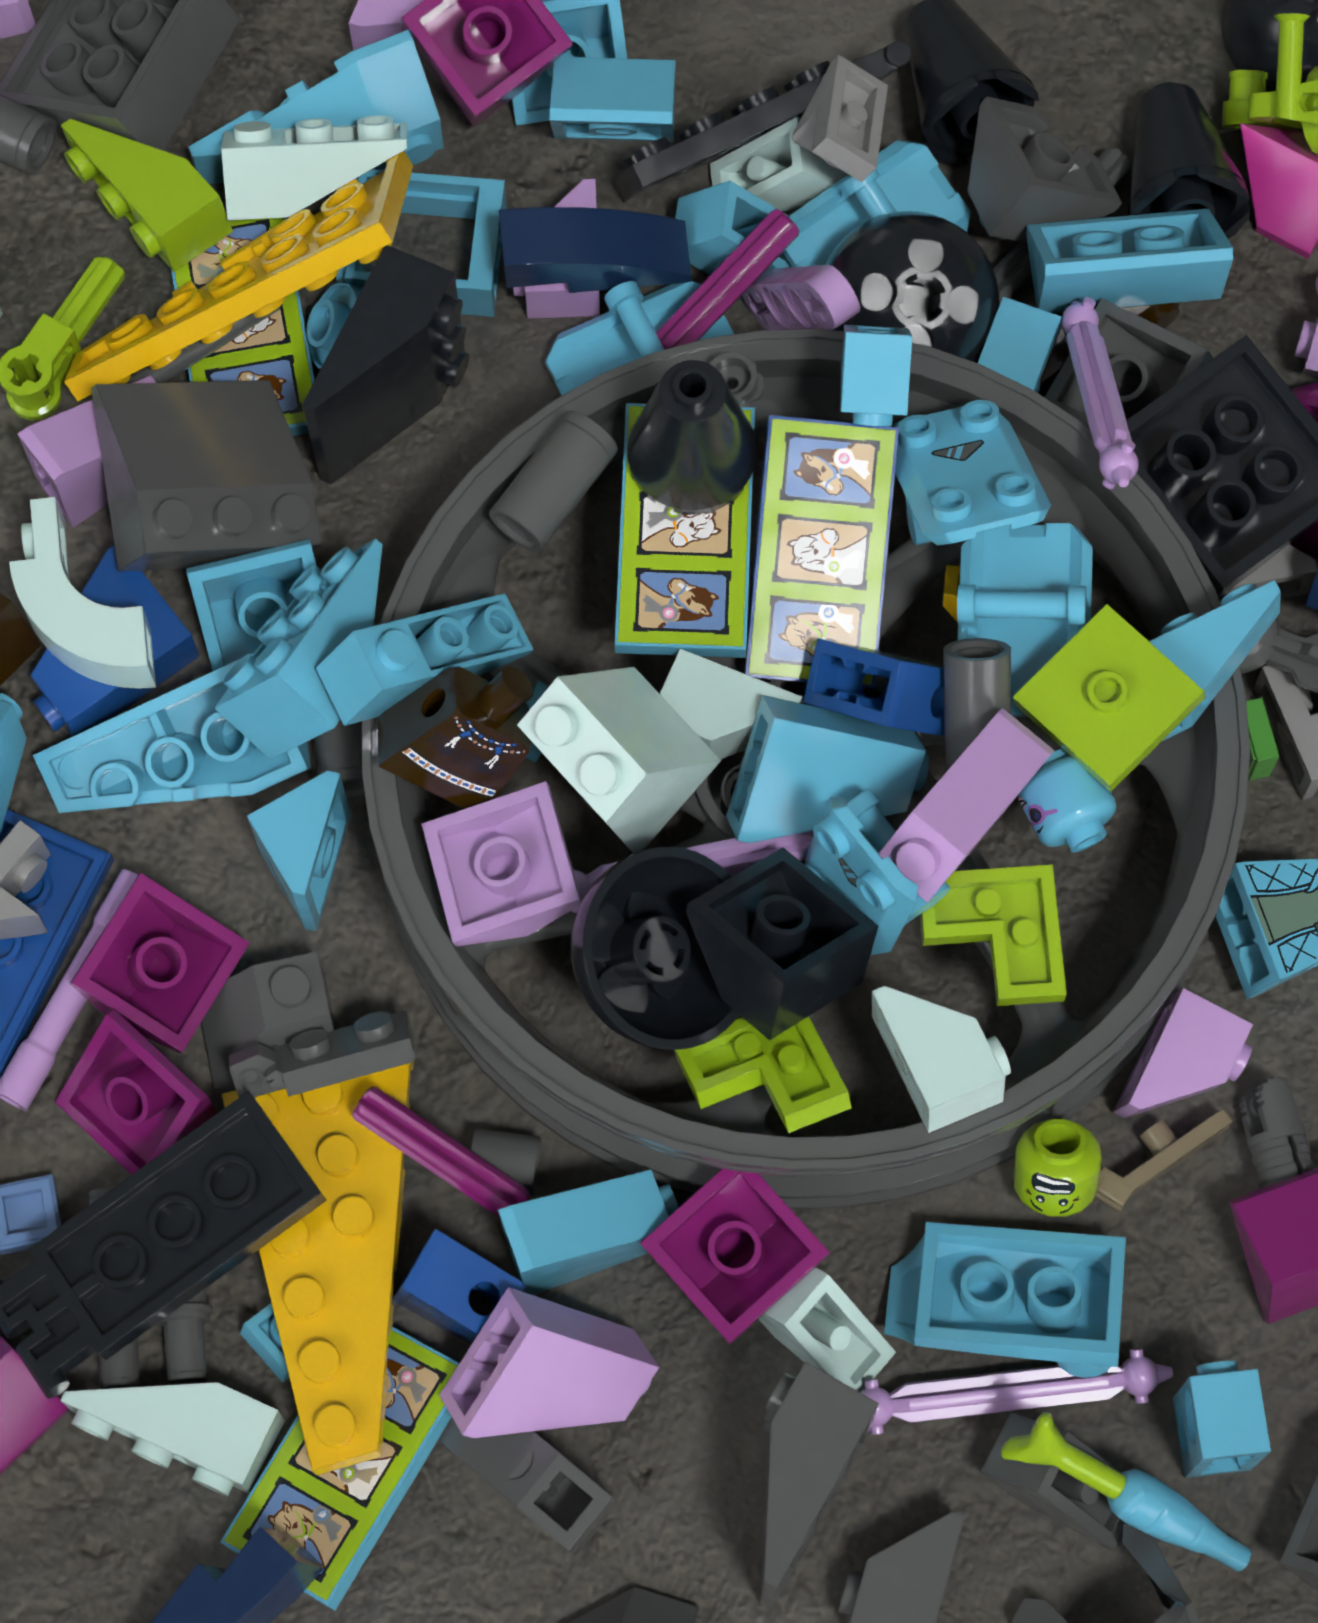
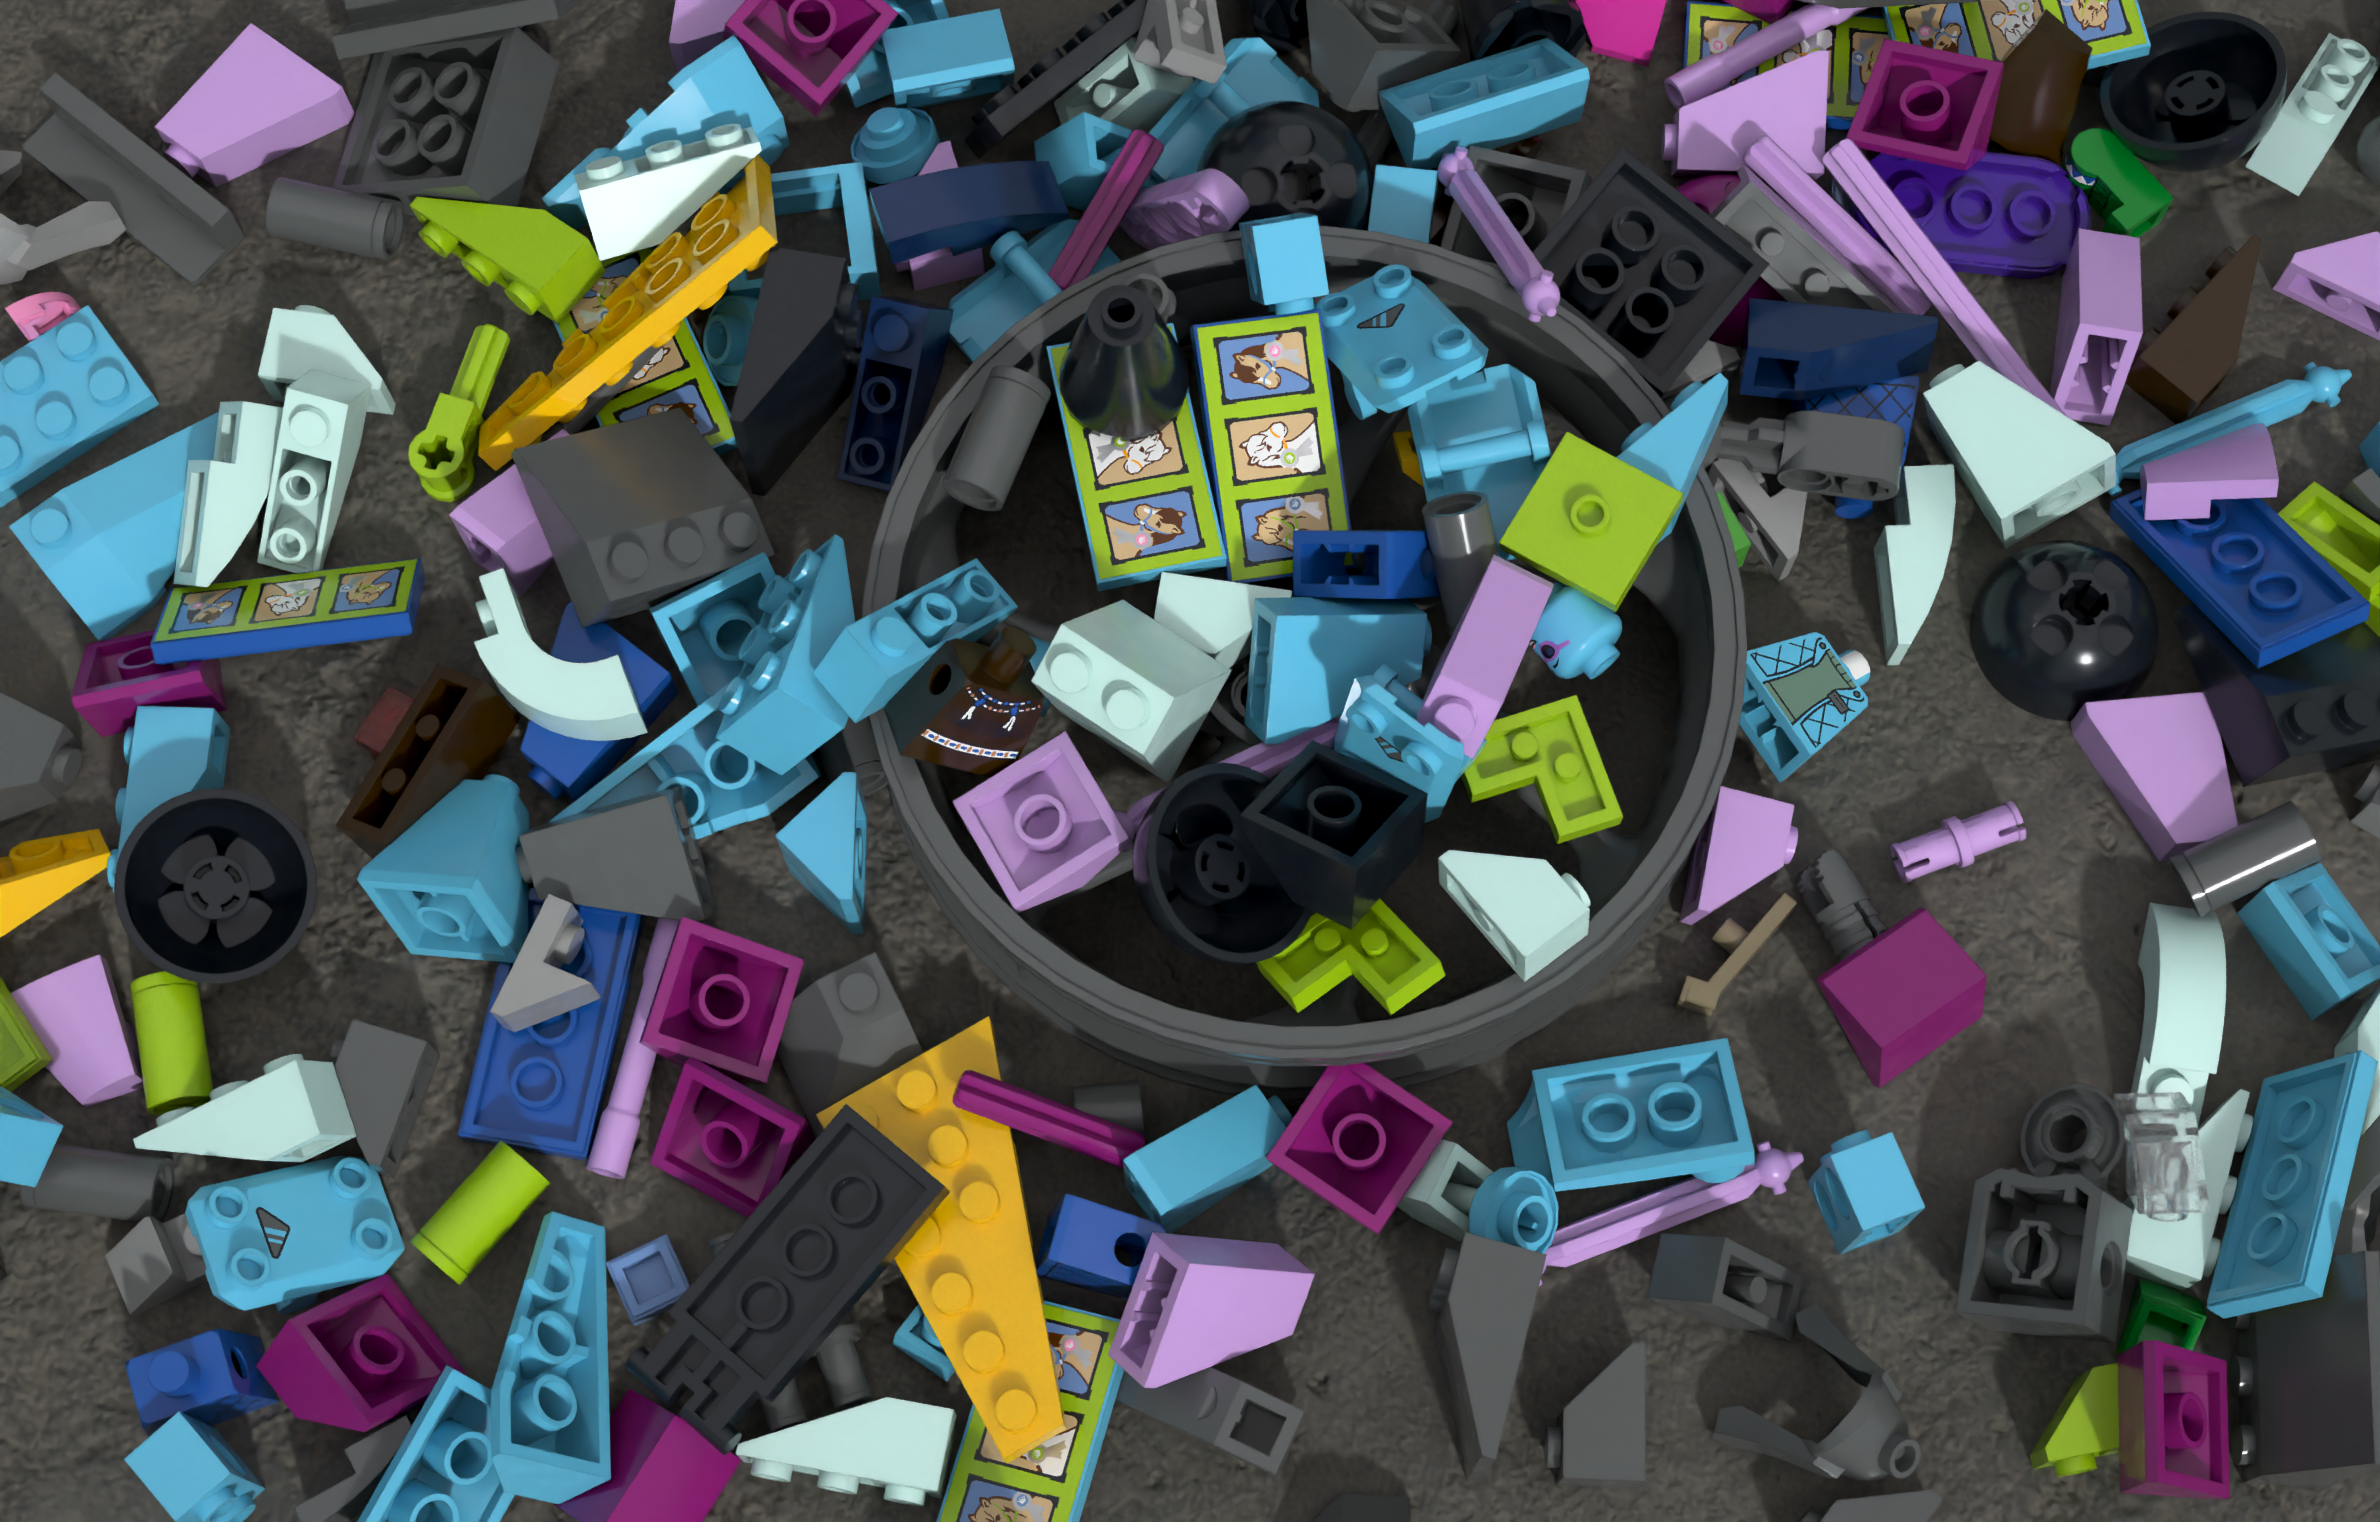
camera: 15 degrees left, 0 degrees up
(102, 803) = (622, 858): none -> dark grey slope
(325, 1057) = (910, 1053): dark grey hinge -> none
(481, 402) = (892, 387): none -> dark blue slope
(542, 170) = (894, 144): none -> medium azure plate
(870, 1355) = (1515, 1209): none -> medium azure plate
(1057, 1167) = (1644, 987): lime head -> none
(1131, 1495) = (1800, 1283): medium azure piece -> none

